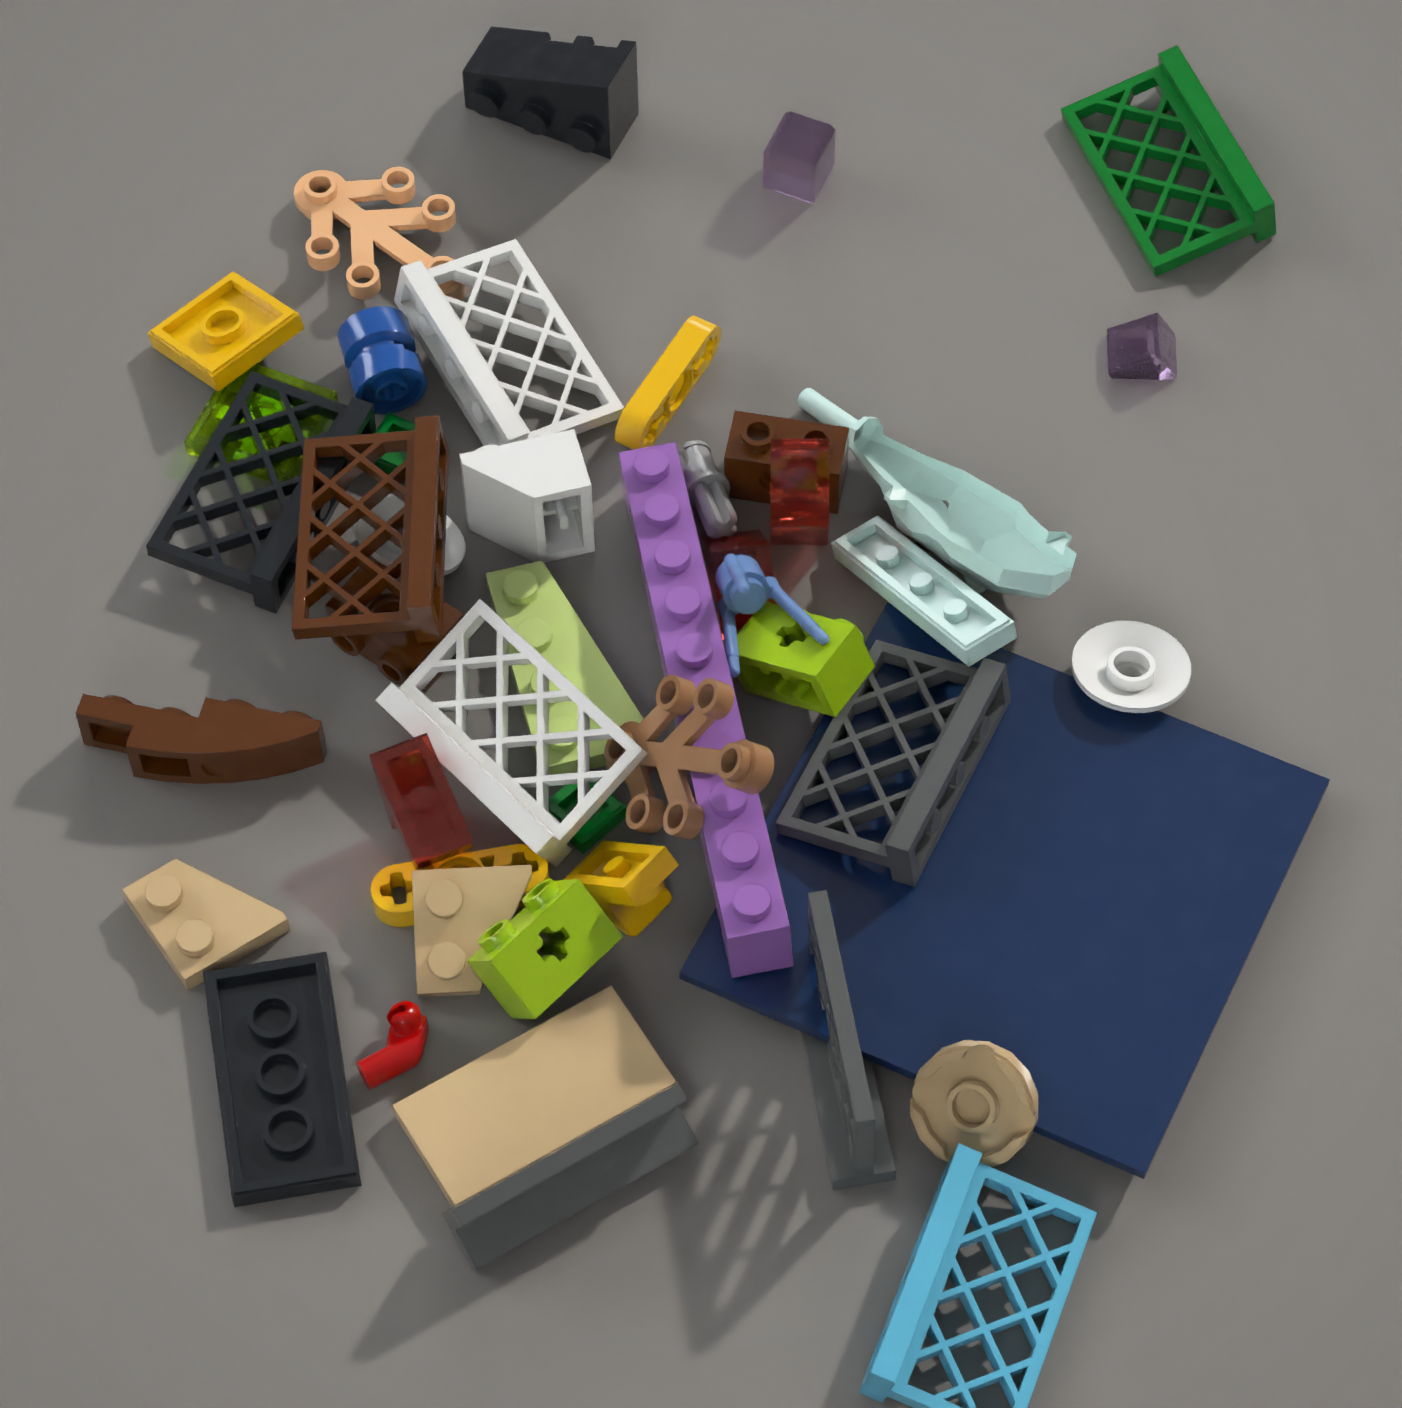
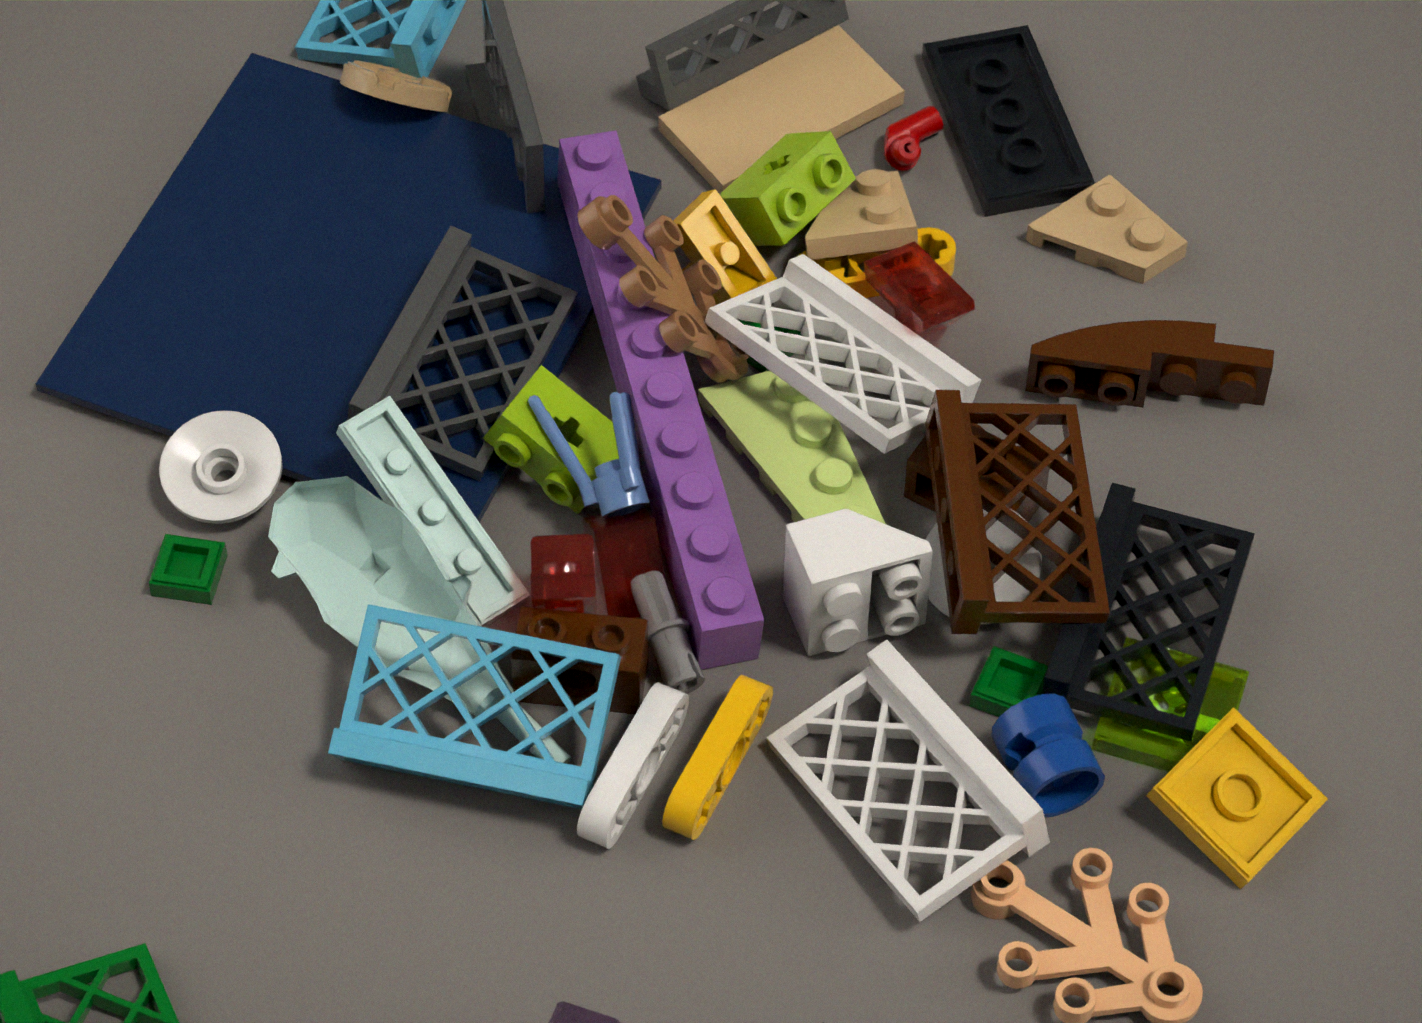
camera: 175 degrees right, 5 degrees down
(742, 379) = (632, 765): none -> white beam
(871, 373) = (463, 762): none -> medium azure fence
(1142, 350) = (171, 842): clear purple slope -> none
(1153, 592) = (188, 569): none -> green tile

